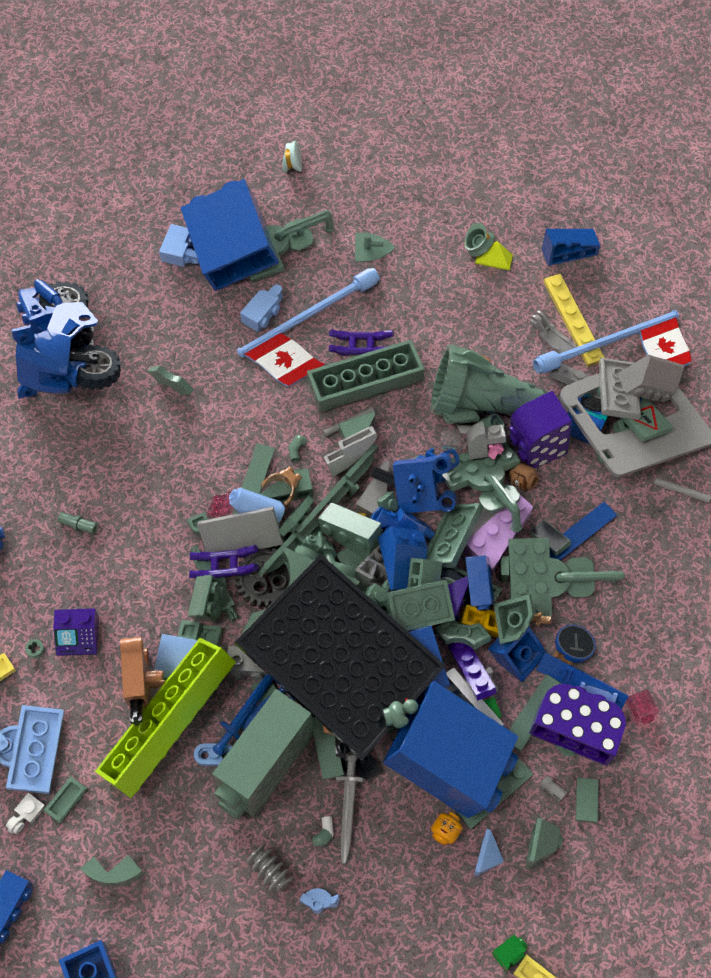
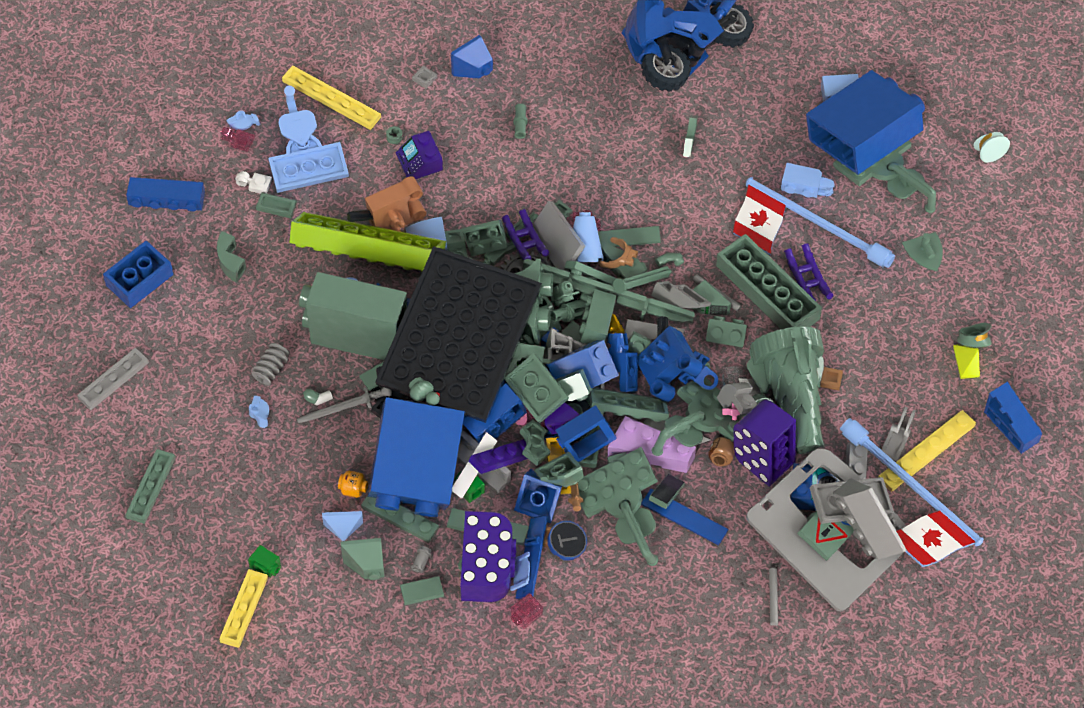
camera: 70 degrees right, 5 degrees down
(326, 491) = (621, 285): none -> sand green axle
(396, 428) = (726, 332): none -> sand green bracket

